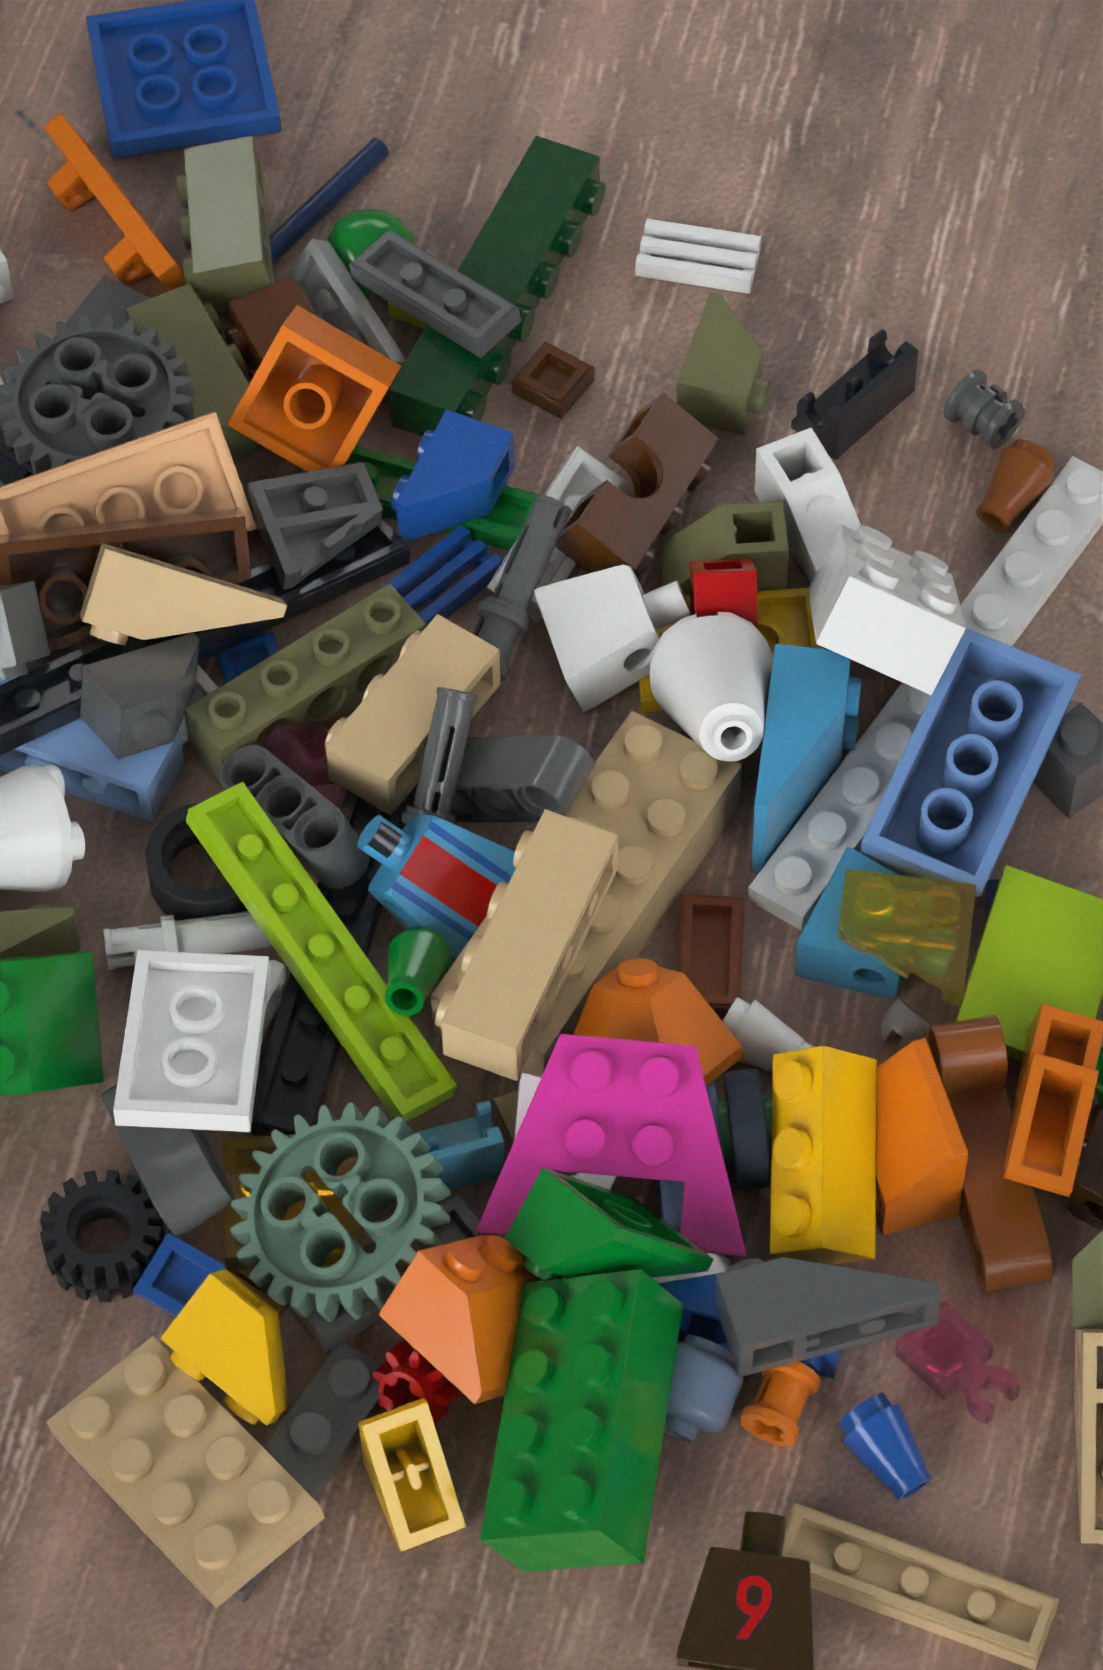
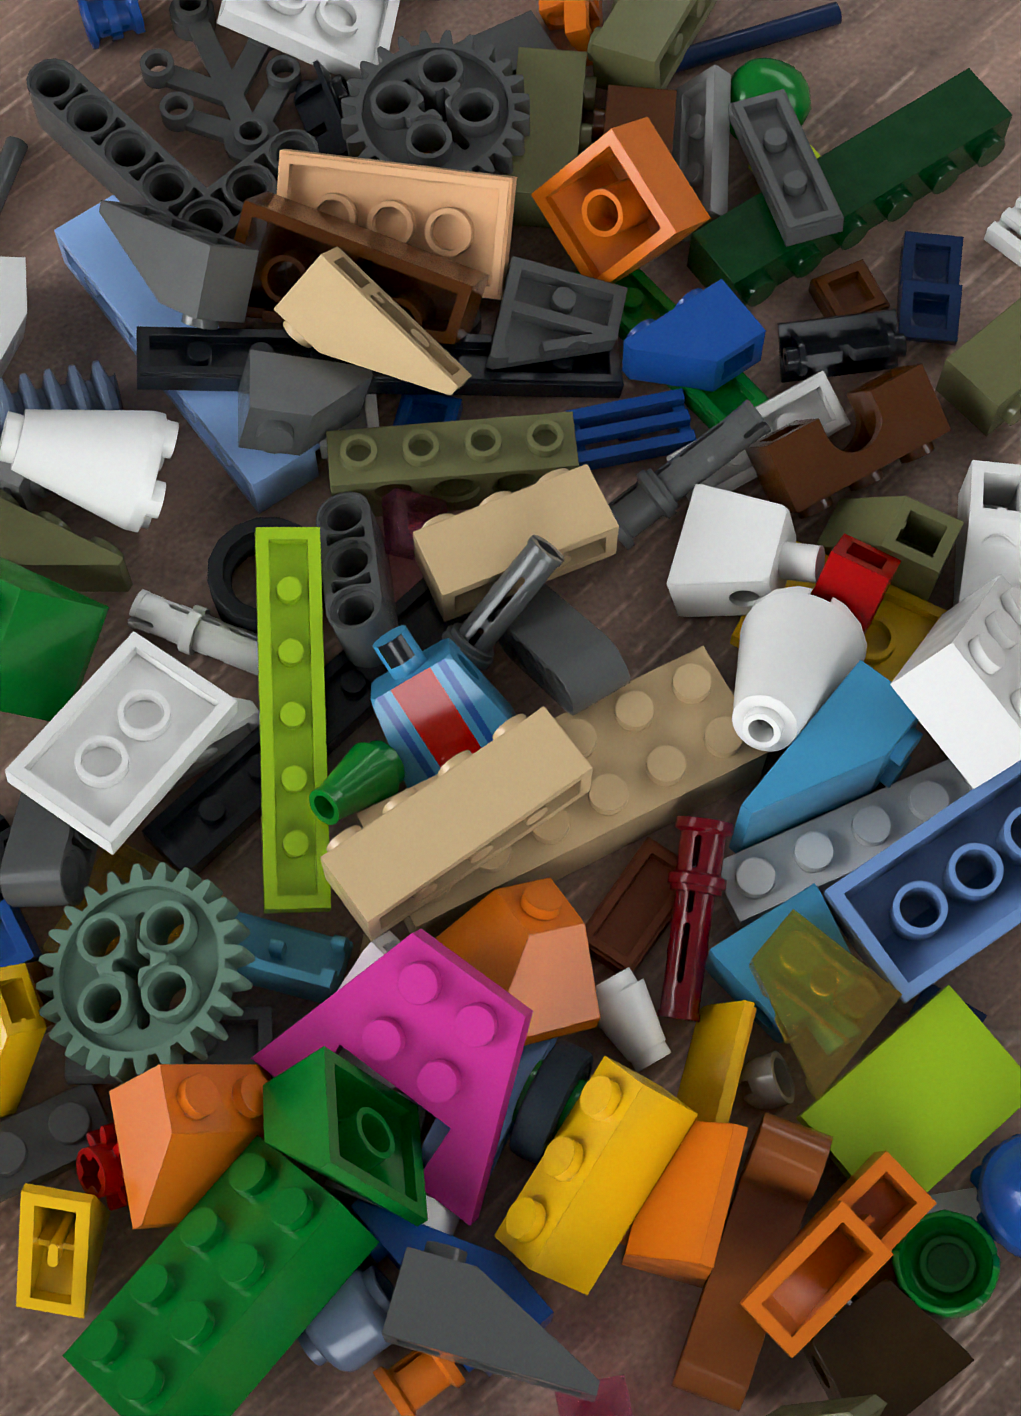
camera: 30 degrees right, 10 degrees up
(575, 419) = (840, 345): none -> black hinge
(617, 338) = (929, 287): none -> dark blue slope
(756, 898) = (696, 886): none -> dark red pin
(853, 1018) = (716, 1059): none -> yellow slope

